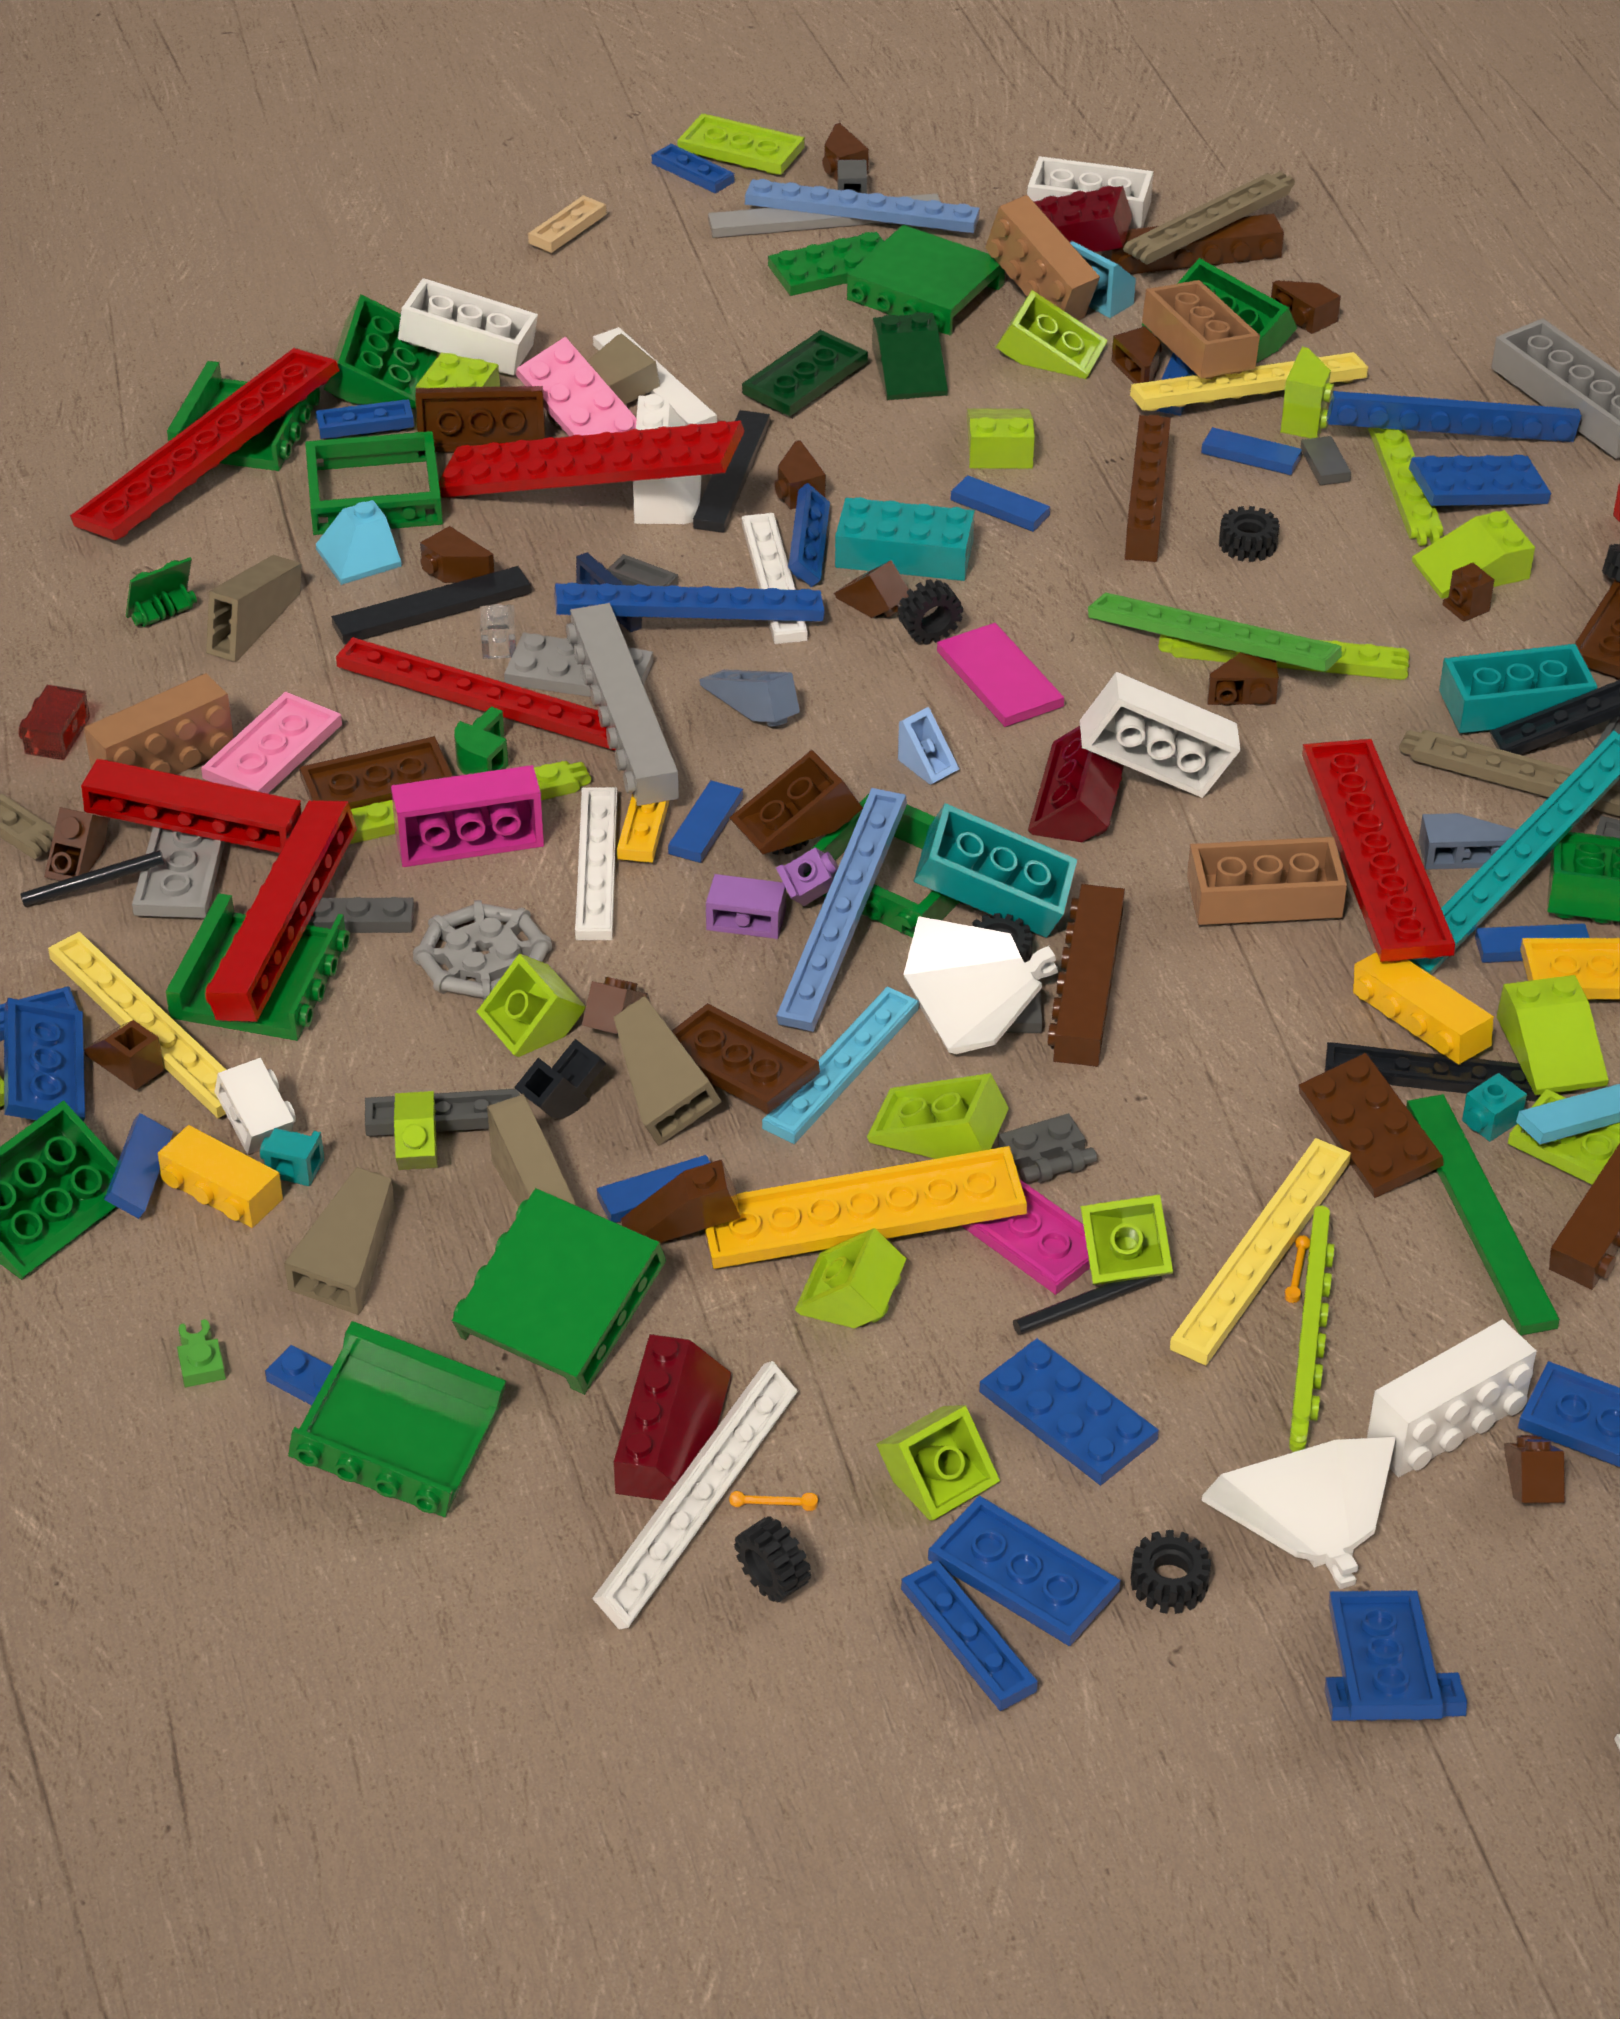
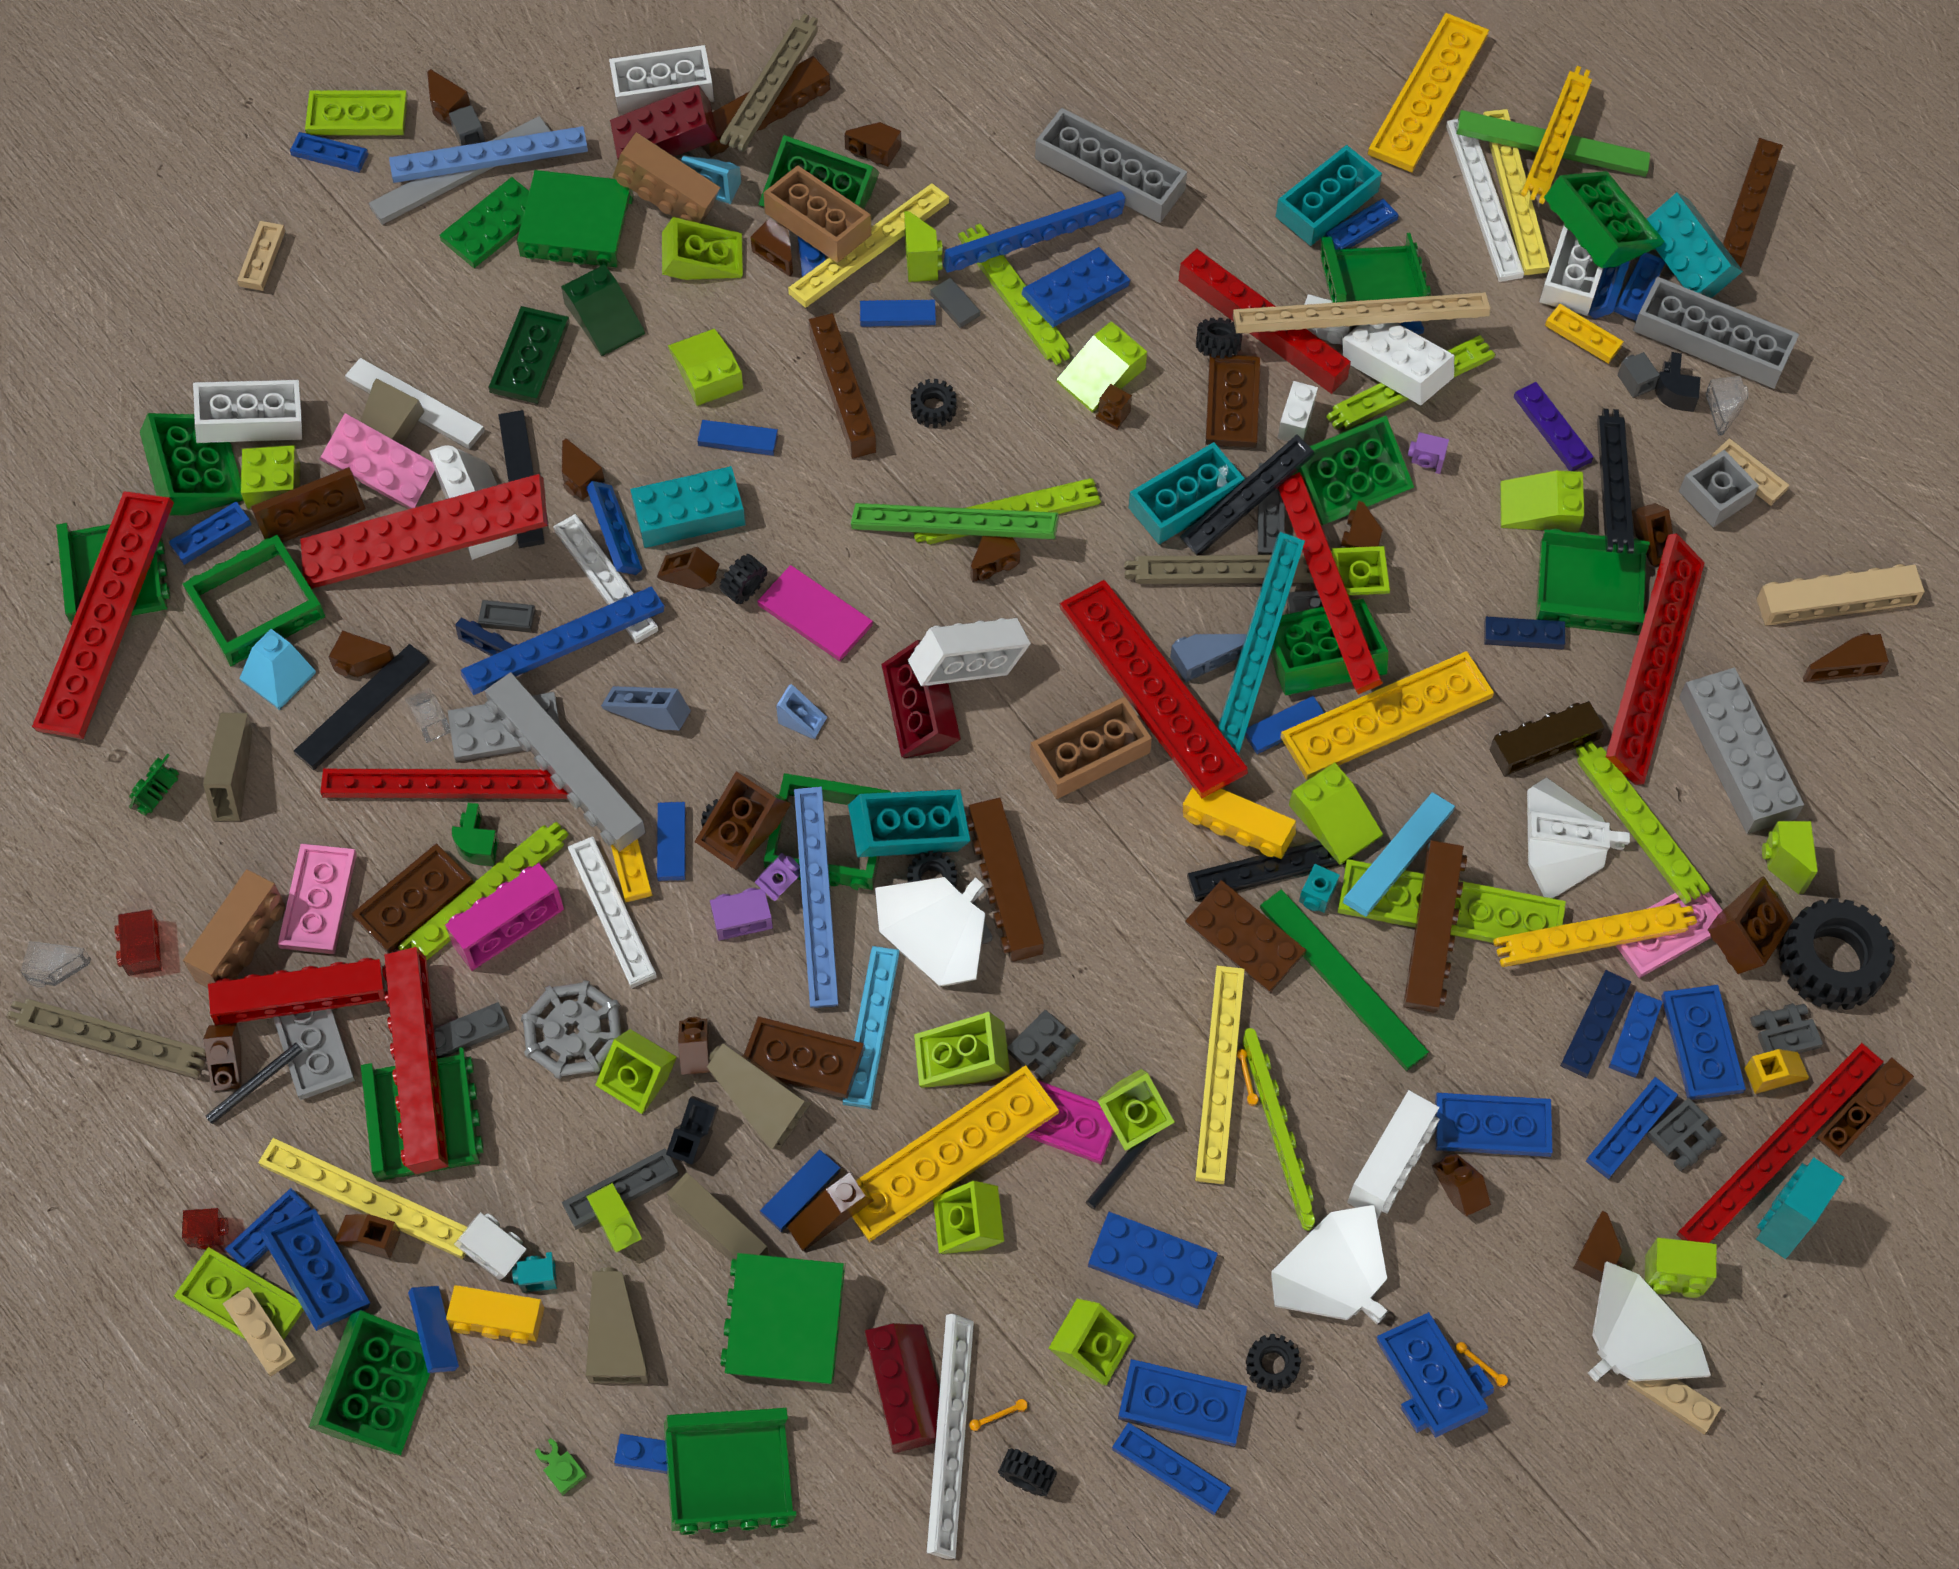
camera: 25 degrees left, 20 degrees up
(1485, 1709) = (1500, 1379): none -> light orange hinge

